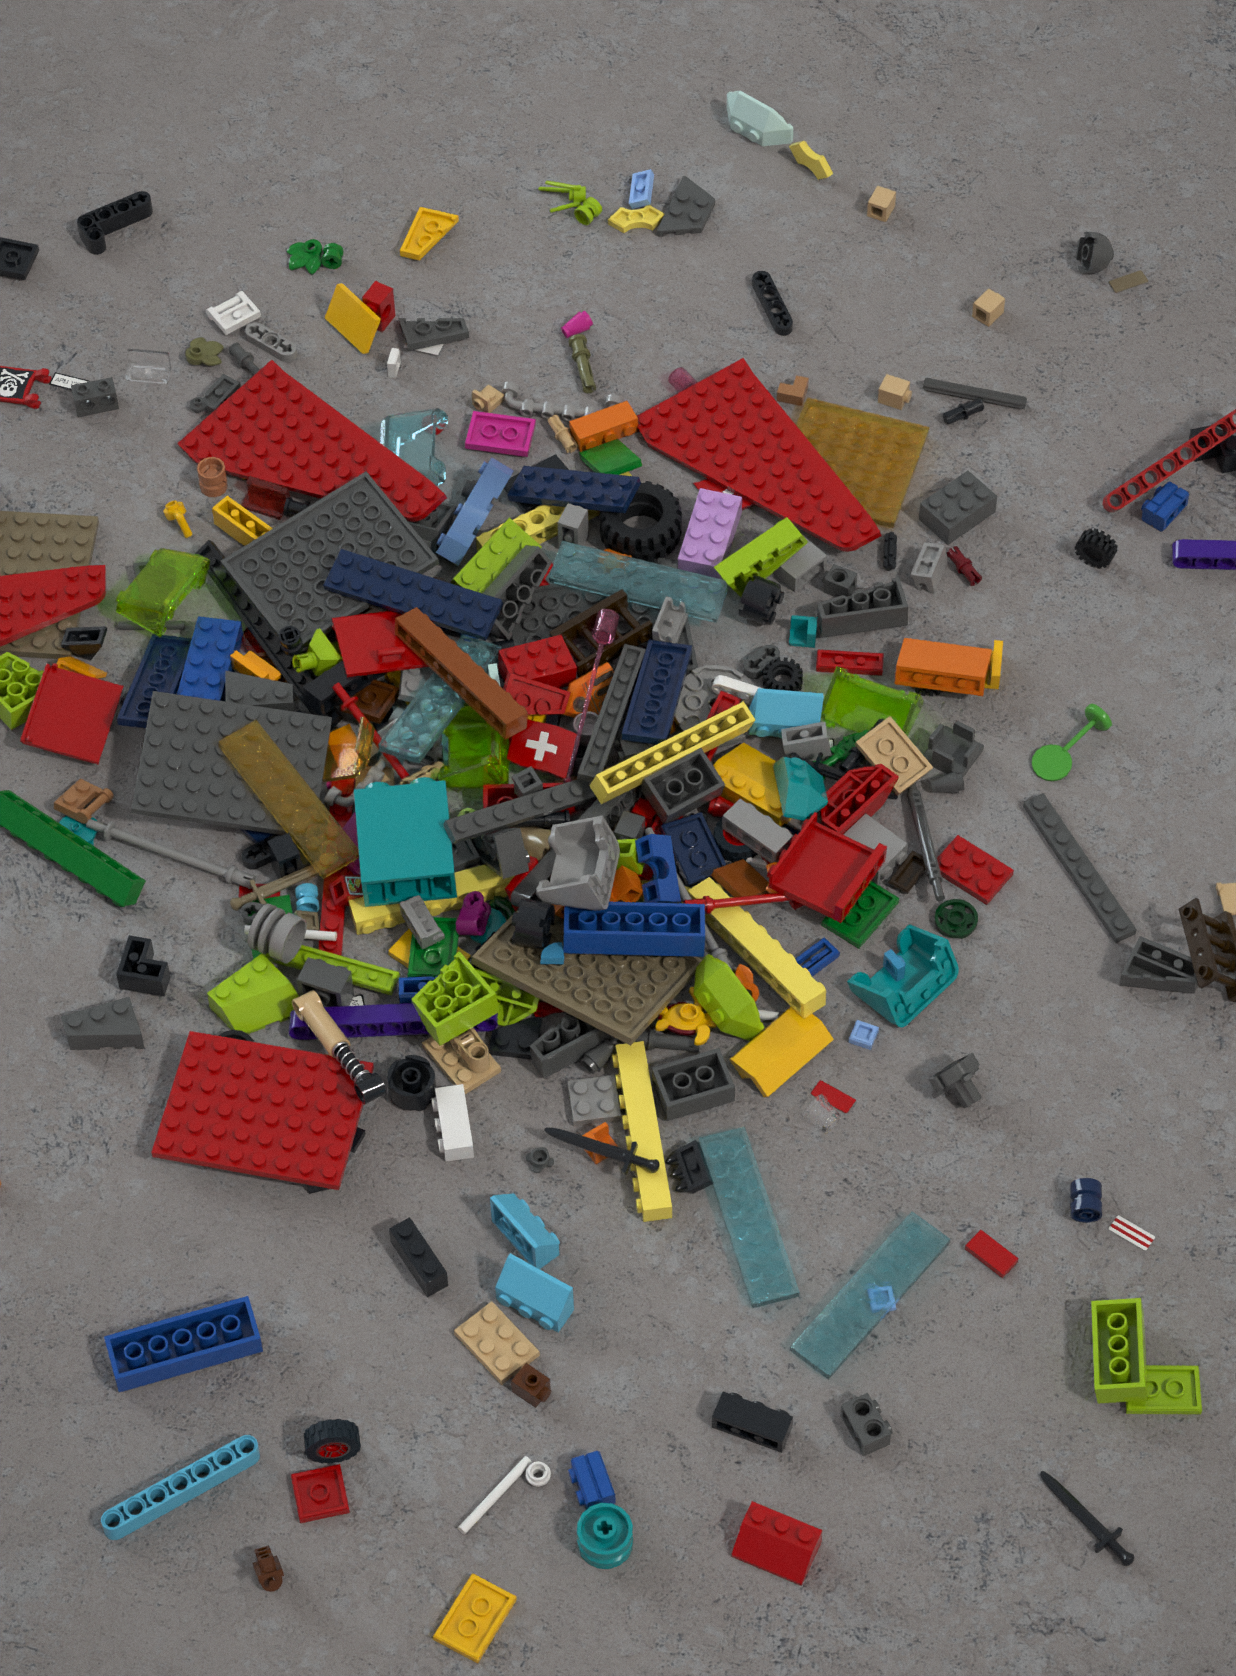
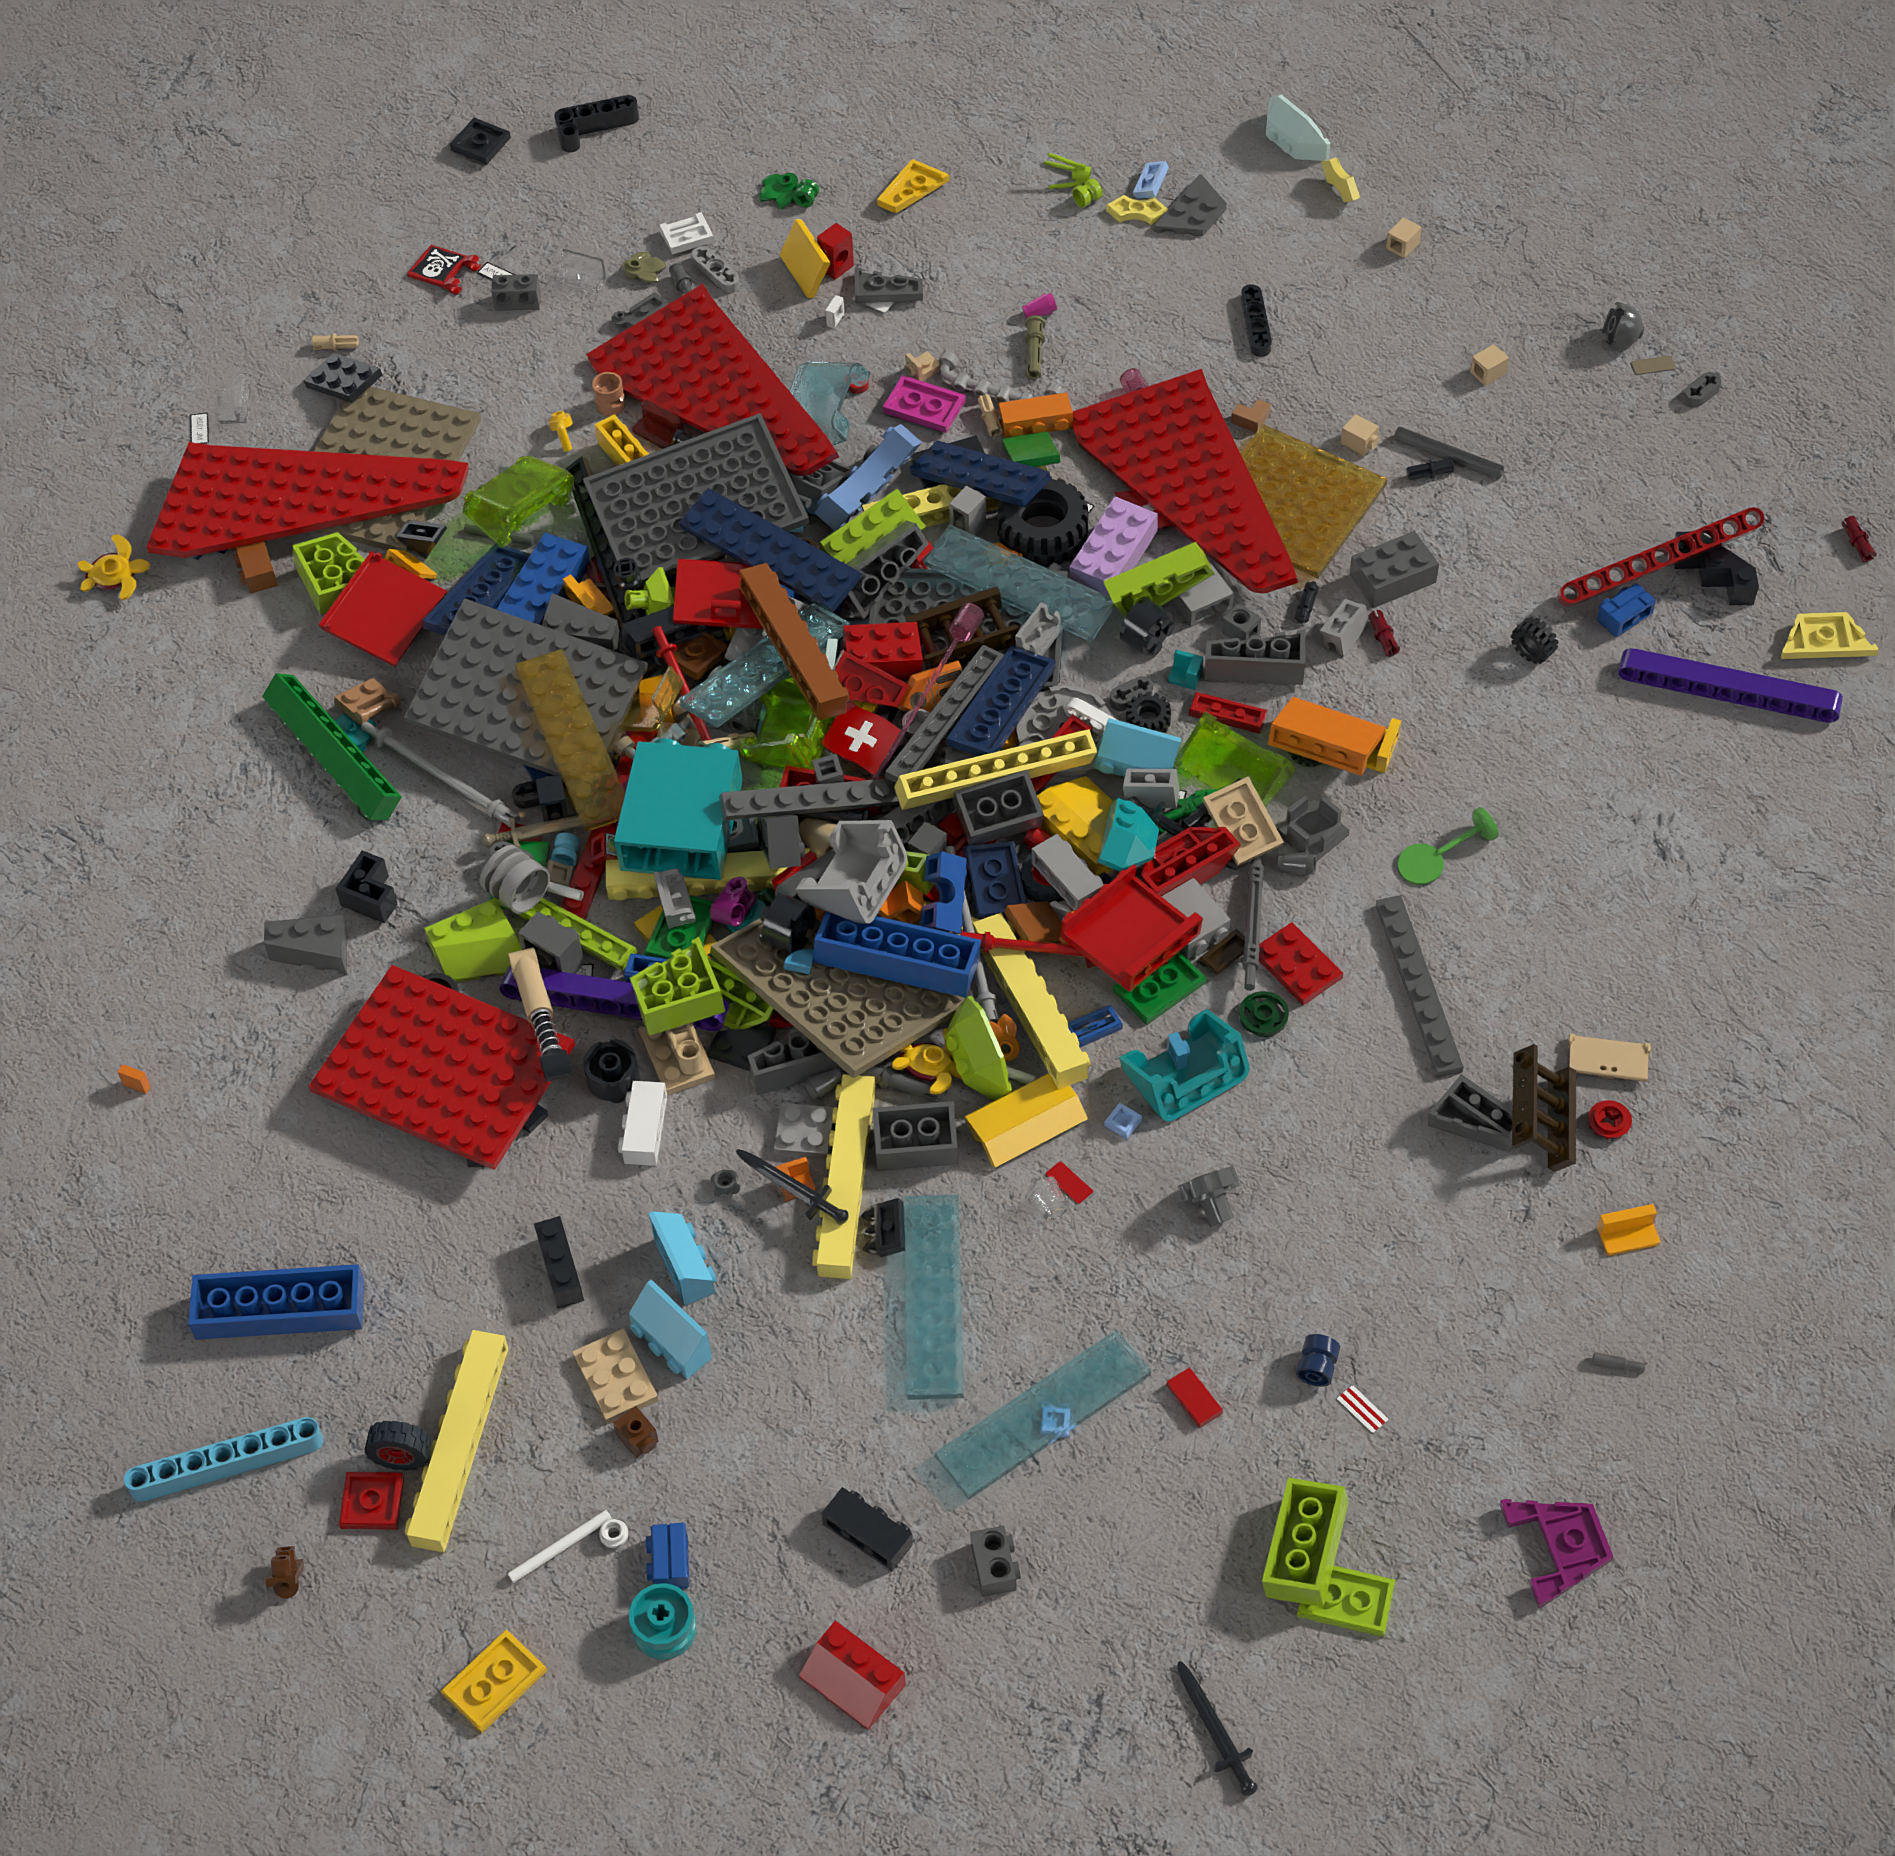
camera: 15 degrees right, 0 degrees up
(379, 1426) = (457, 1441): none -> light yellow brick
(1179, 298) = (1705, 392): none -> dark grey beam

